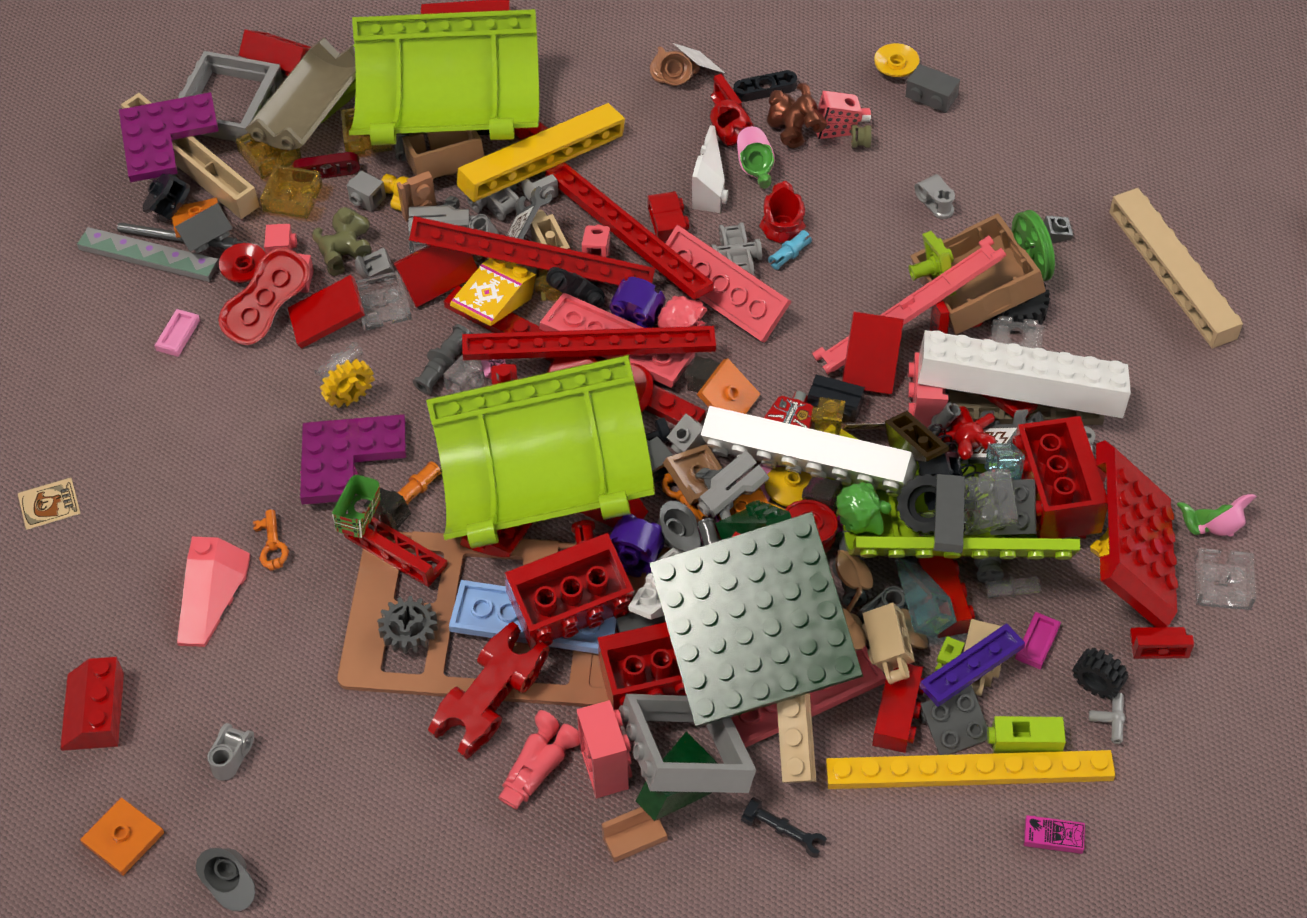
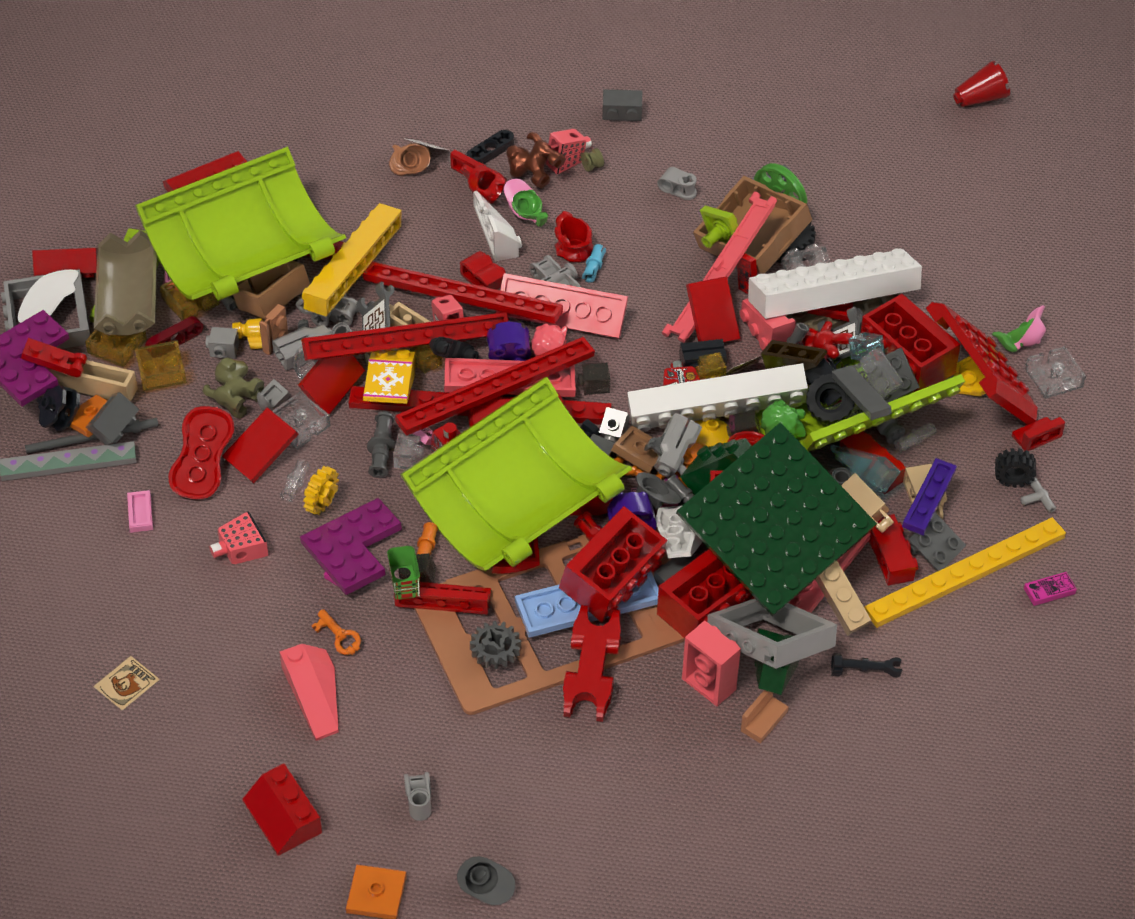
camera: 30 degrees left, 5 degrees down
(184, 144) = (54, 358): none -> red plate
(235, 78) = (47, 293): none -> white sticker
(240, 261) = (156, 429): red dish -> none
(243, 402) = (240, 540): none -> coral torso
(279, 236) = (177, 406): coral brick -> none
(538, 758) = (658, 696): coral piece -> none
(548, 184) = (367, 290): light grey plate -> none
(728, 389) = (621, 379): orange plate -> none
(896, 60) = (581, 93): yellow dish -> none
(950, 650) = (903, 498): lime piece -> none
(1026, 734) = (991, 530): lime brick -> none
(1038, 640) = (957, 457): dark pink tile -> none
(1176, 268) = (883, 172): tan brick -> none

